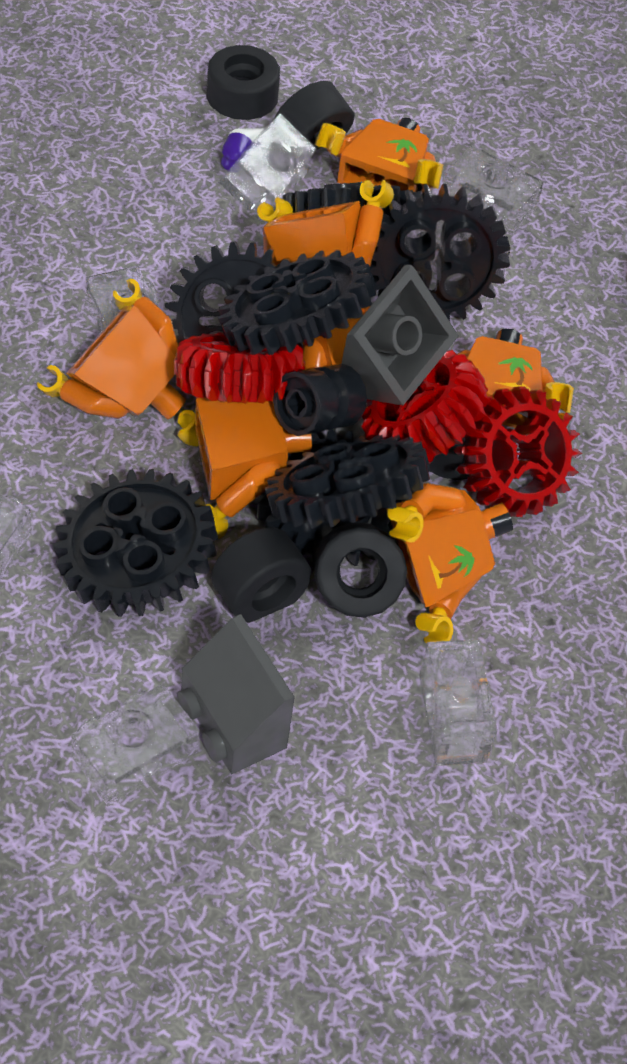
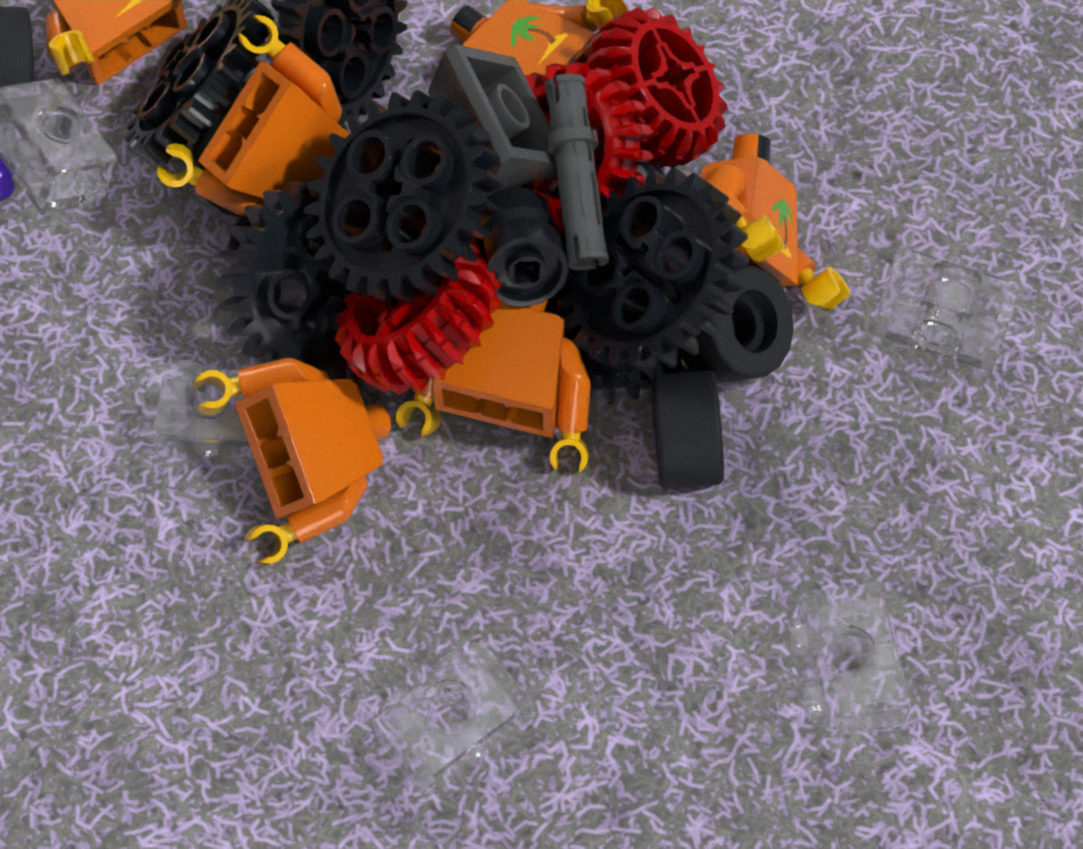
camera: 55 degrees left, 10 degrees up
(136, 542) = (608, 588): black gear -> none
(237, 698) = (851, 523): dark grey slope -> none
(404, 387) = (573, 151): none -> dark grey pin

